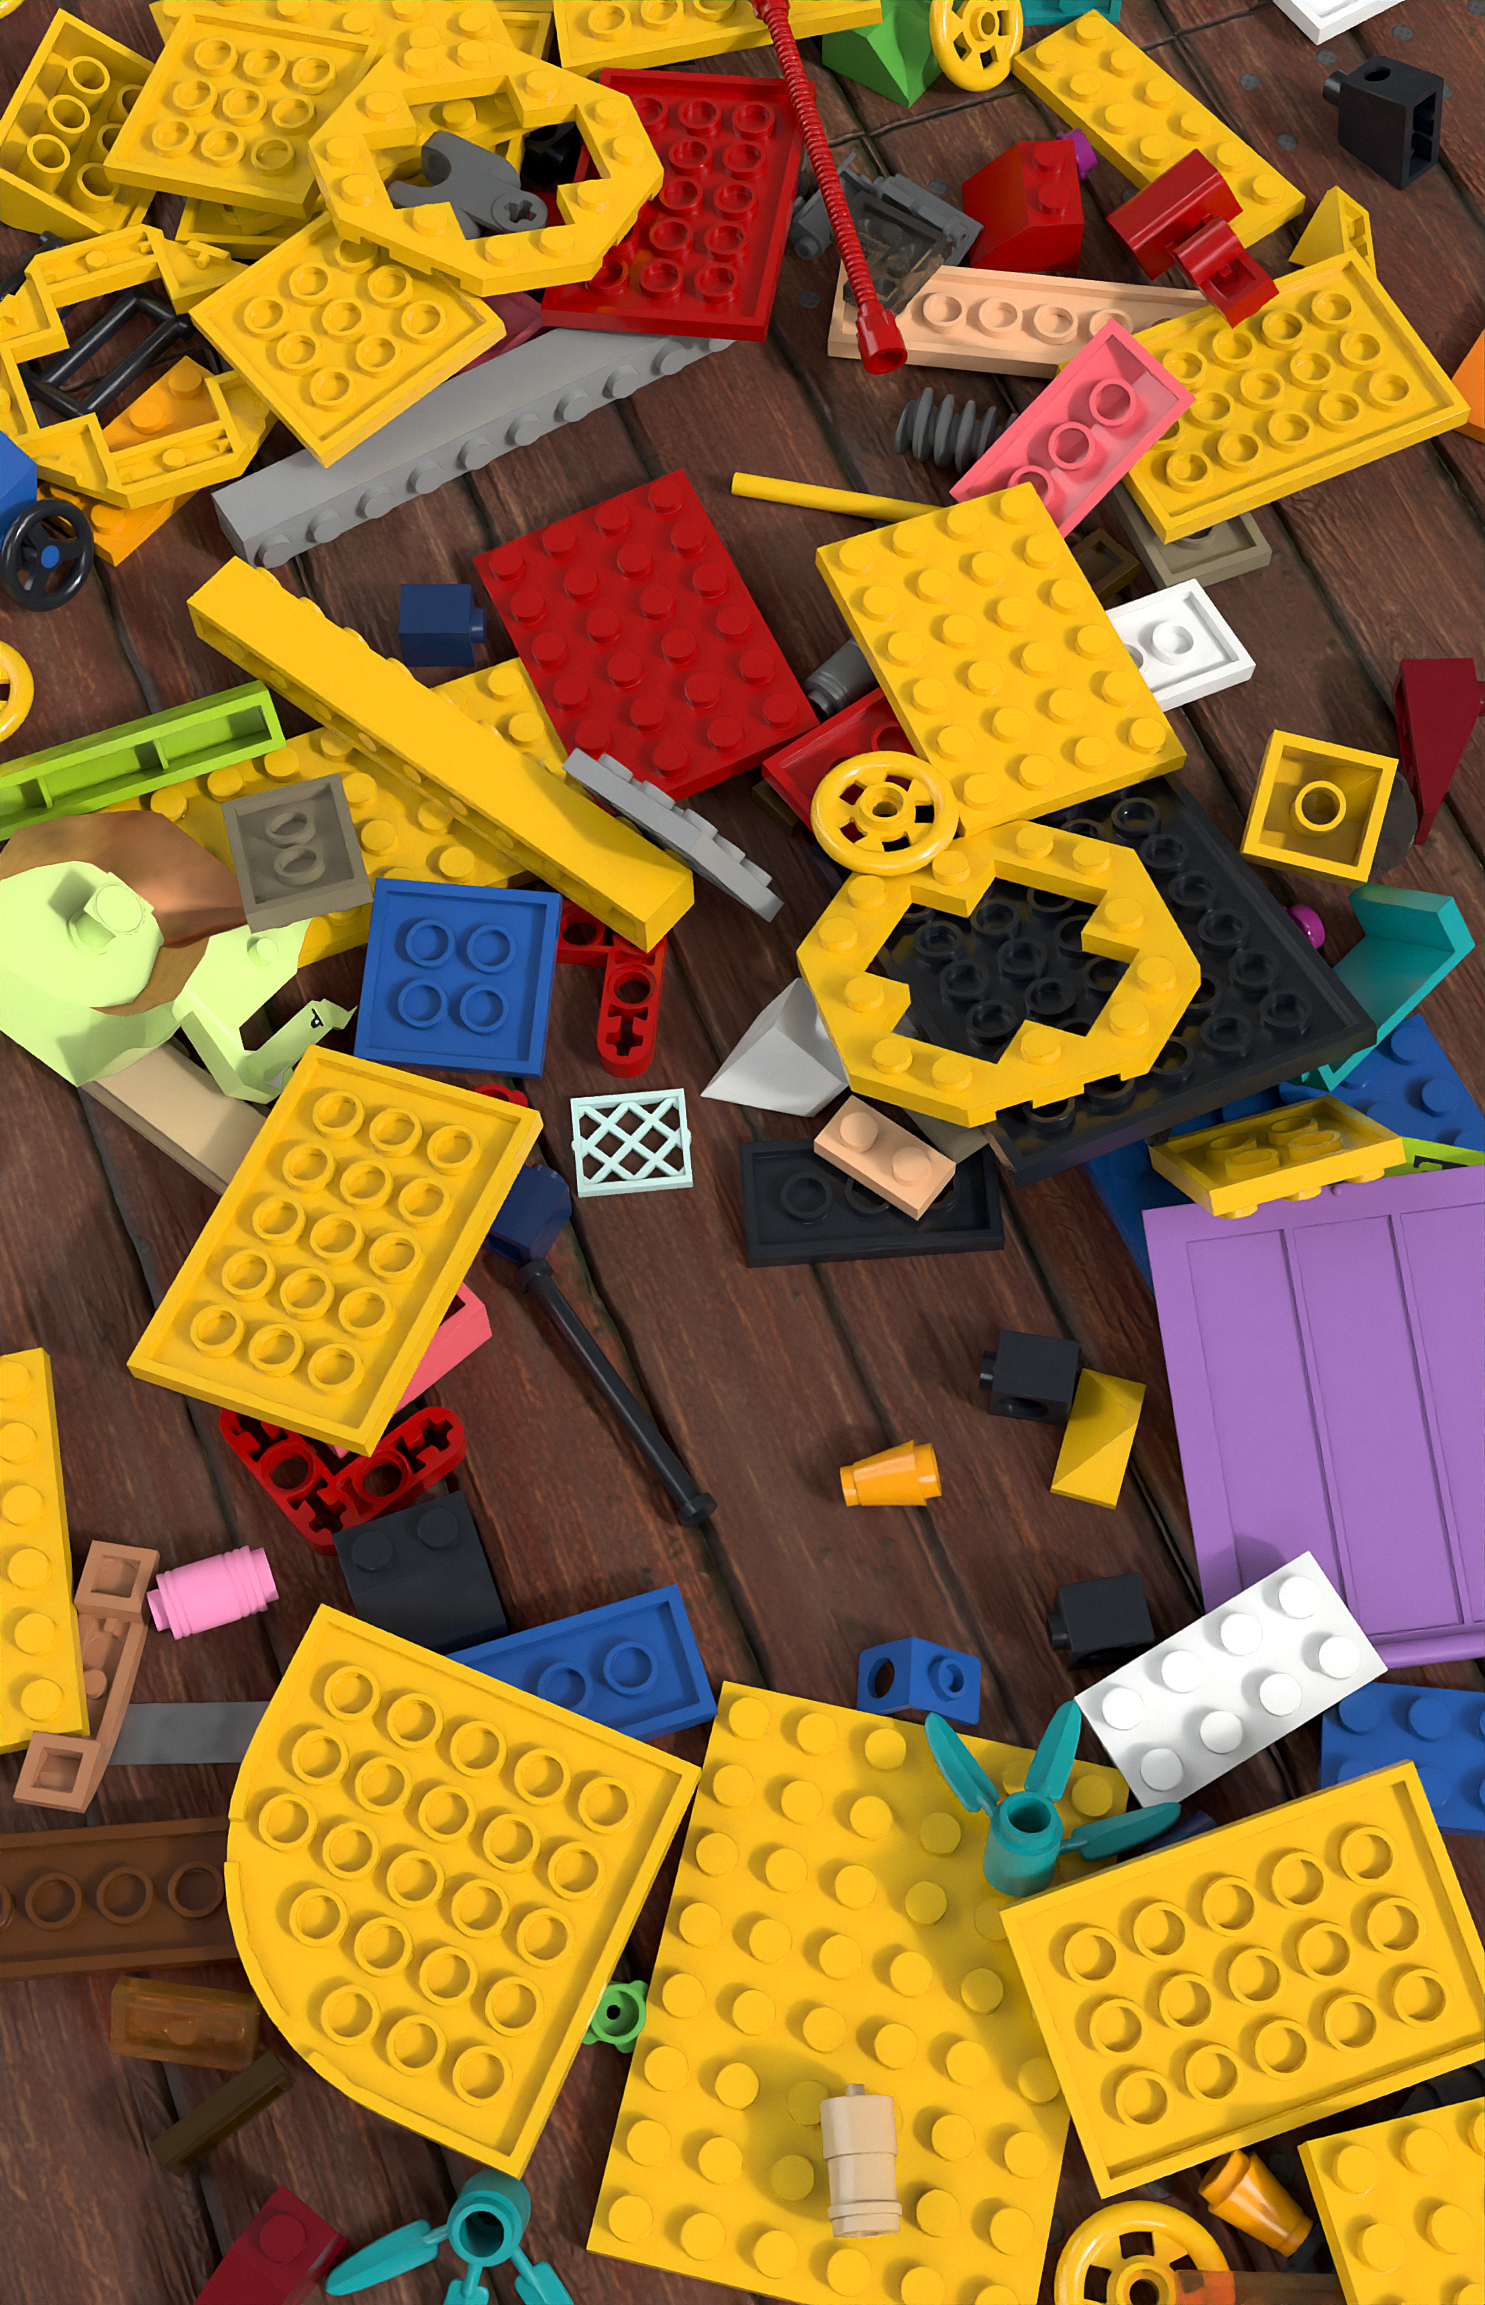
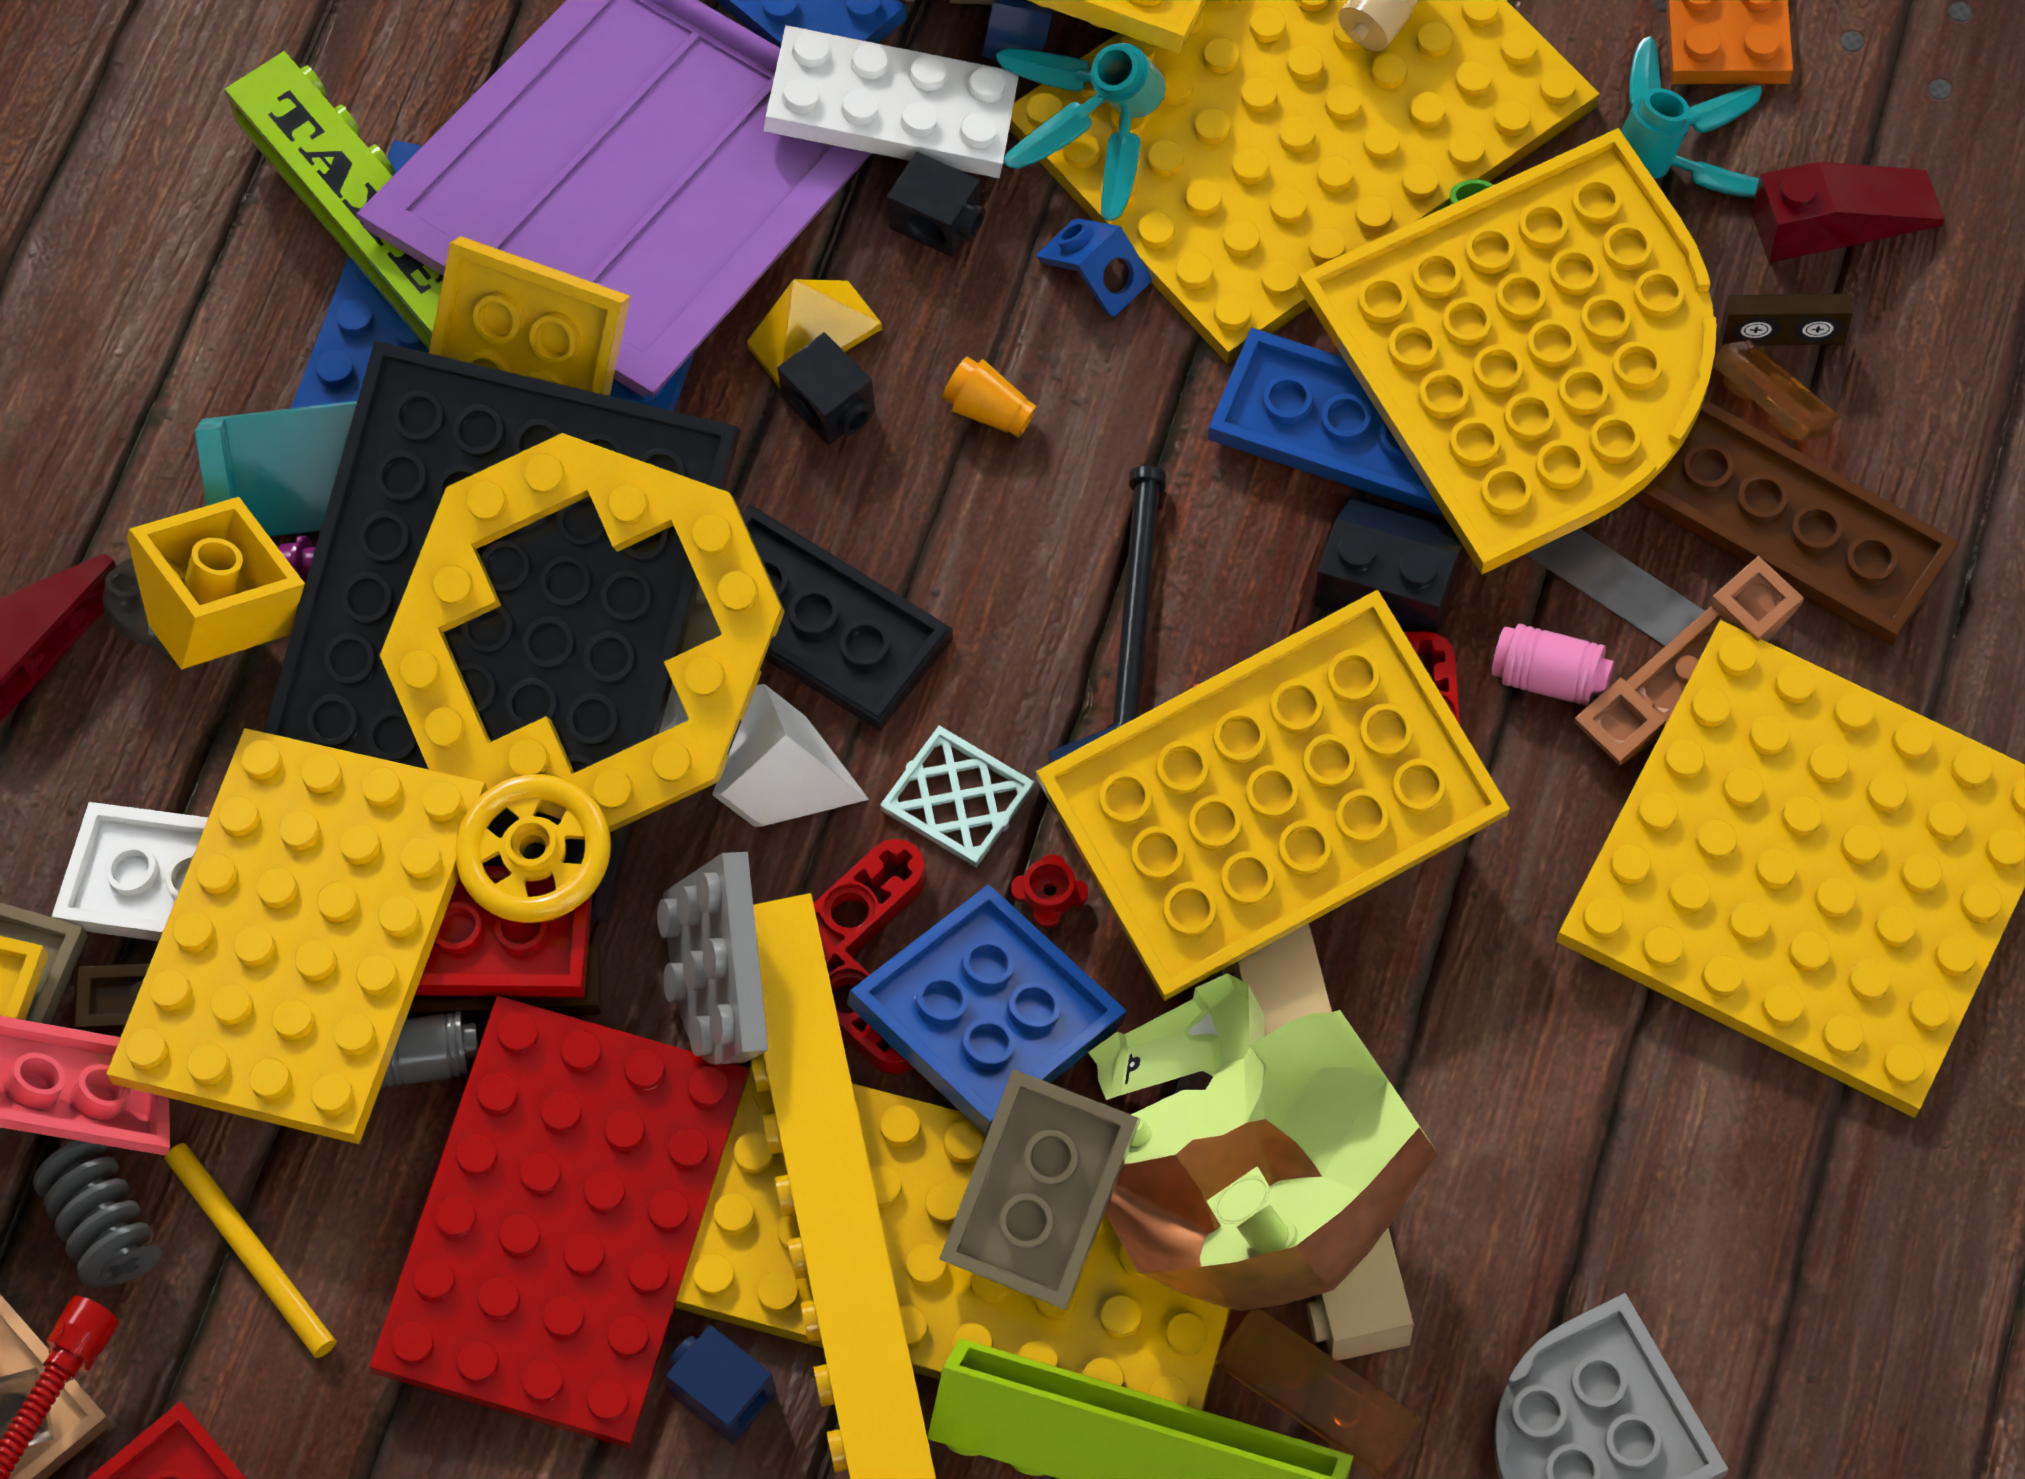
camera: 140 degrees left, 0 degrees up
(884, 1157) = (798, 643): light nougat plate -> none

